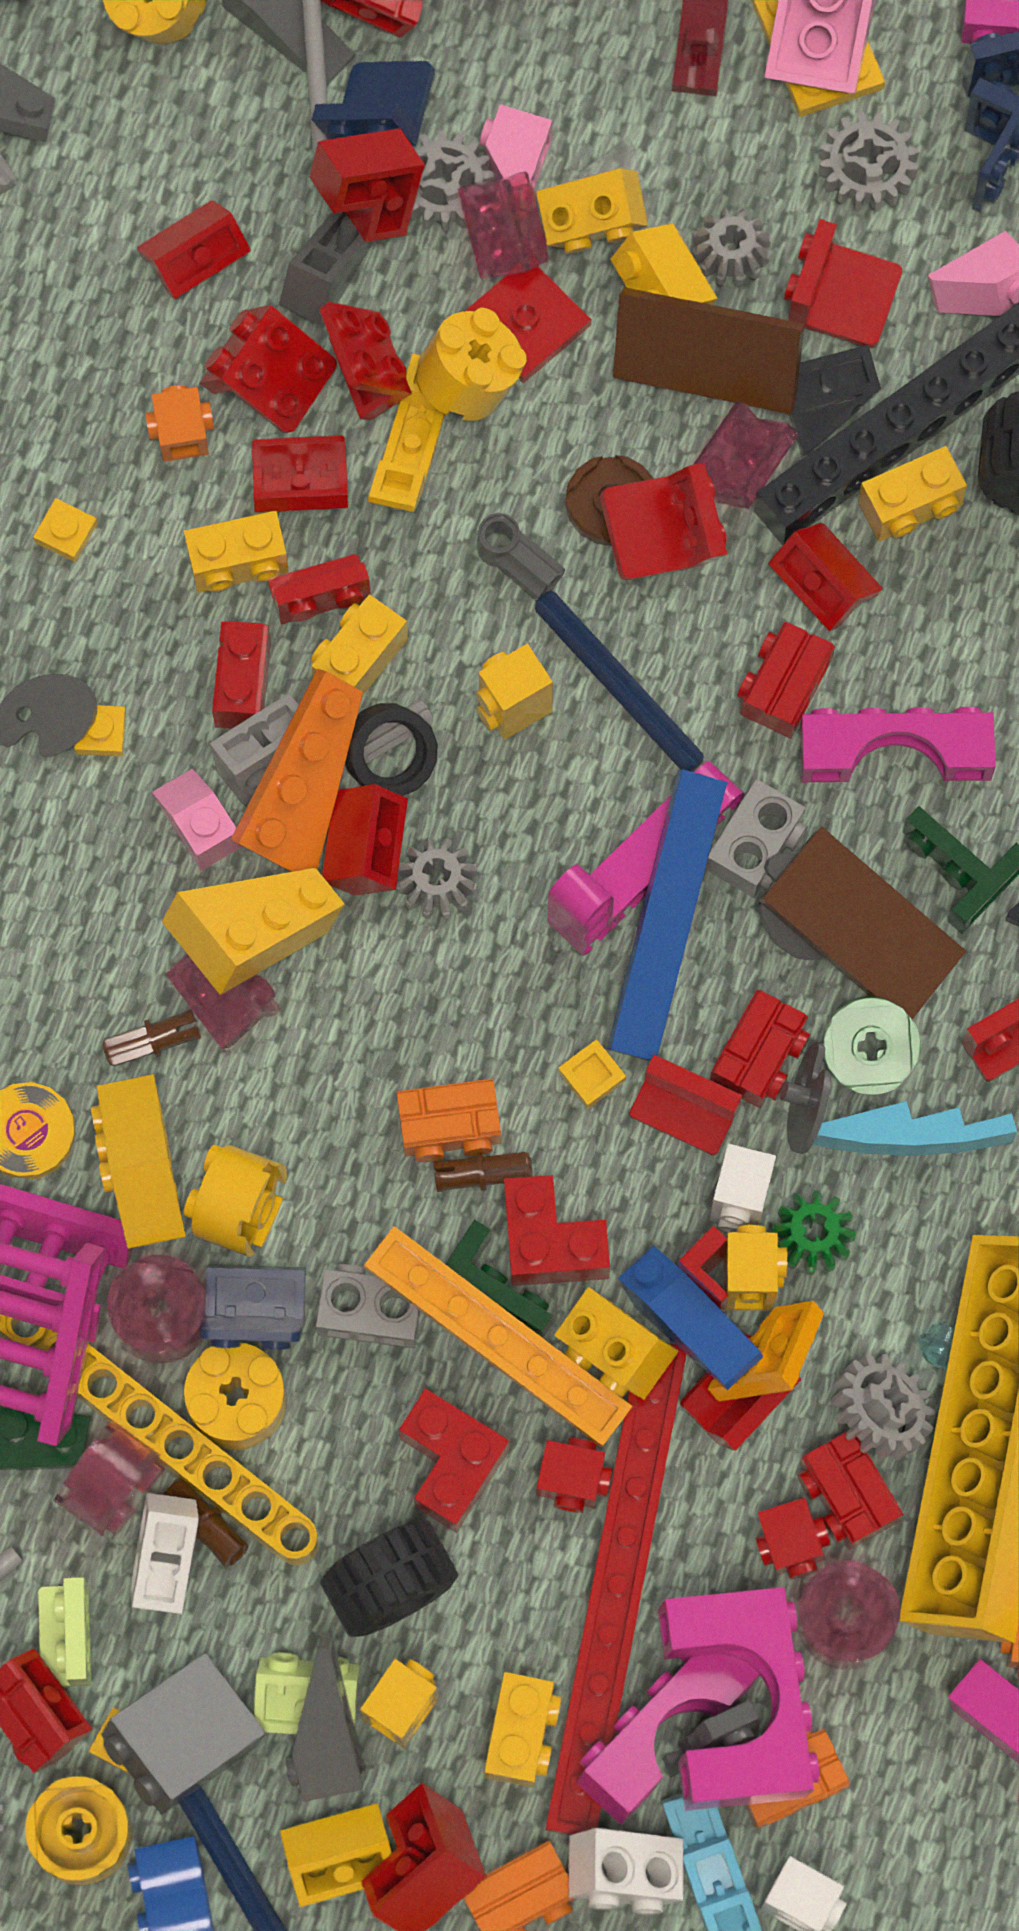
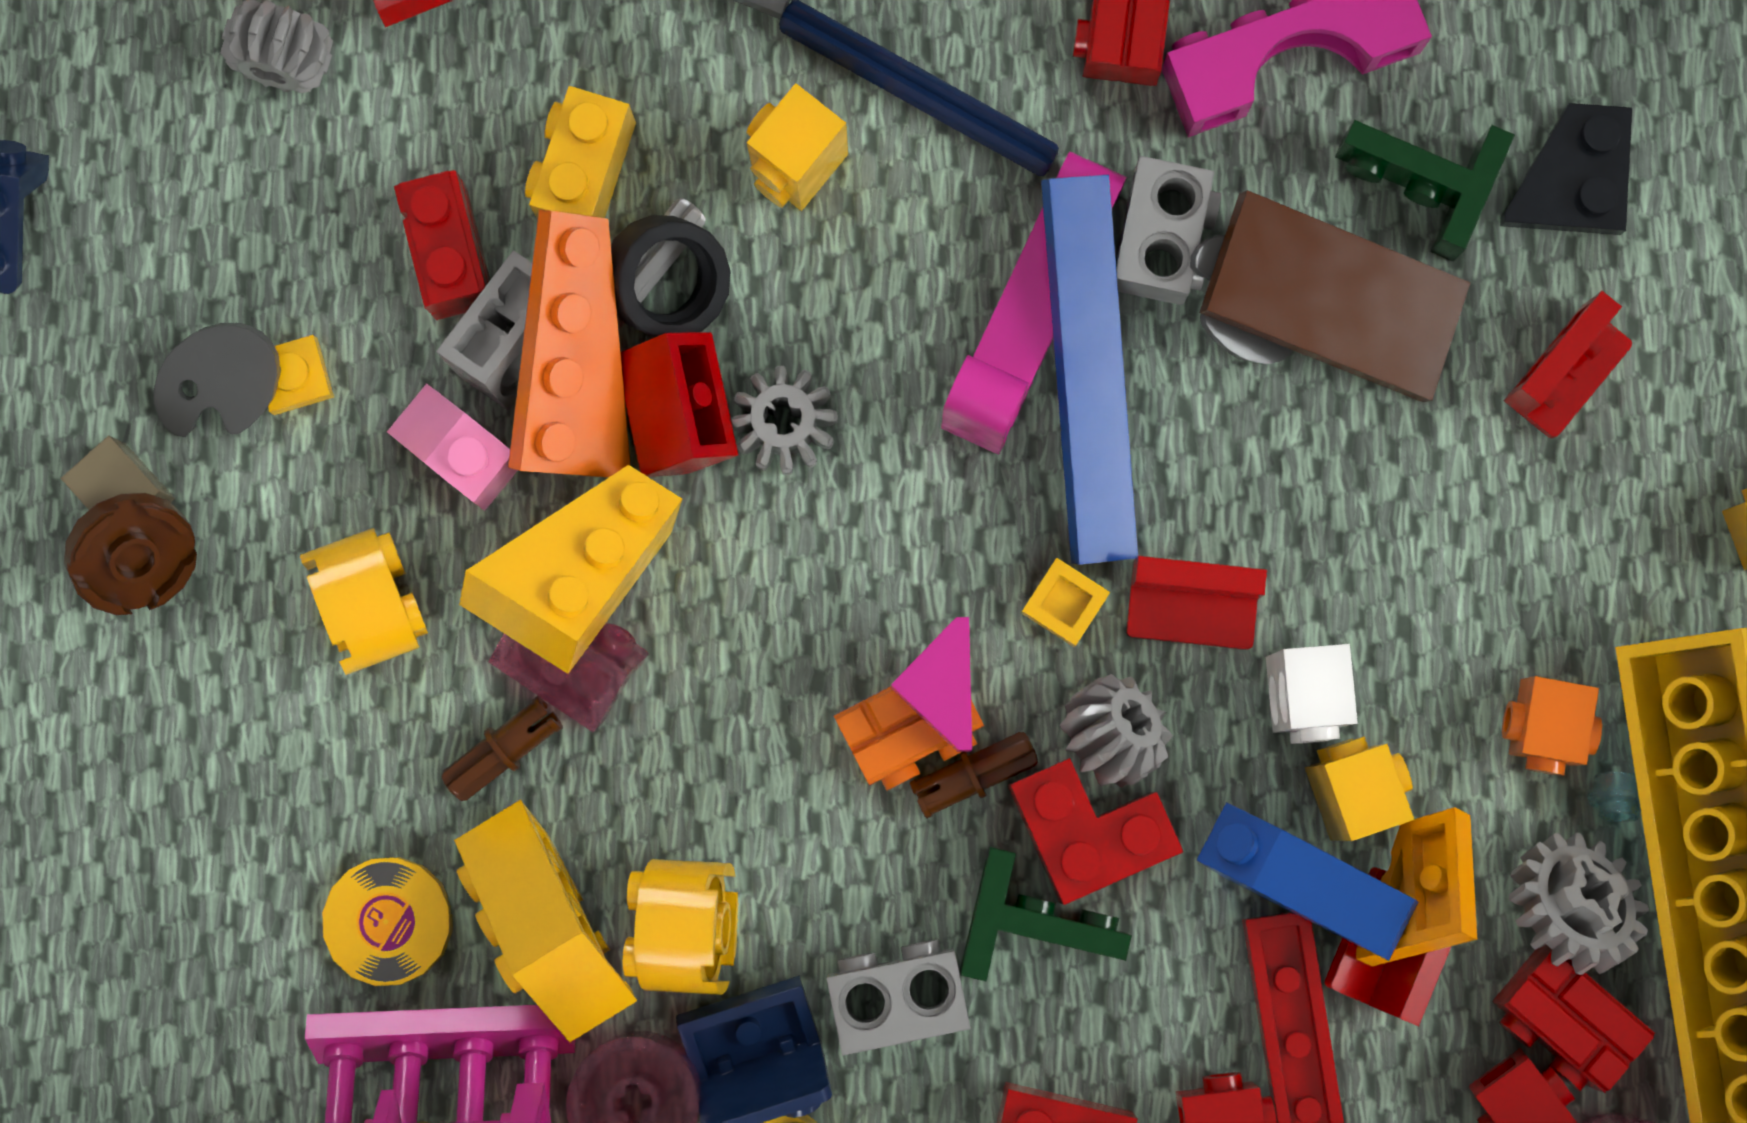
camera: 15 degrees left, 10 degrees up
(65, 530) = (155, 131): yellow plate -> none
(93, 898) = (362, 600): none -> yellow brick
(173, 498) = (276, 46): none -> light grey gear
(236, 552) = (380, 87): yellow brick -> none
(320, 589) = (503, 98): red bracket -> none
(478, 1089) = (940, 685): none -> dark pink slope
(497, 1336) = (1074, 991): light orange plate -> none
(594, 1171) = (1116, 731): none -> light grey gear
(615, 1344) = (1222, 945): yellow brick -> none
(702, 1261) = (1292, 804): red panel -> none
(760, 1049) = (1264, 498): red brick -> none
(807, 1099) = (1349, 548): dark grey piece -> none
(833, 1232) = (1429, 696): green gear -> none
(892, 1063) = (1430, 461): plate -> none
(894, 1132) = (1470, 543): medium azure slope -> none
(911, 1278) = (1552, 724): none -> orange brick

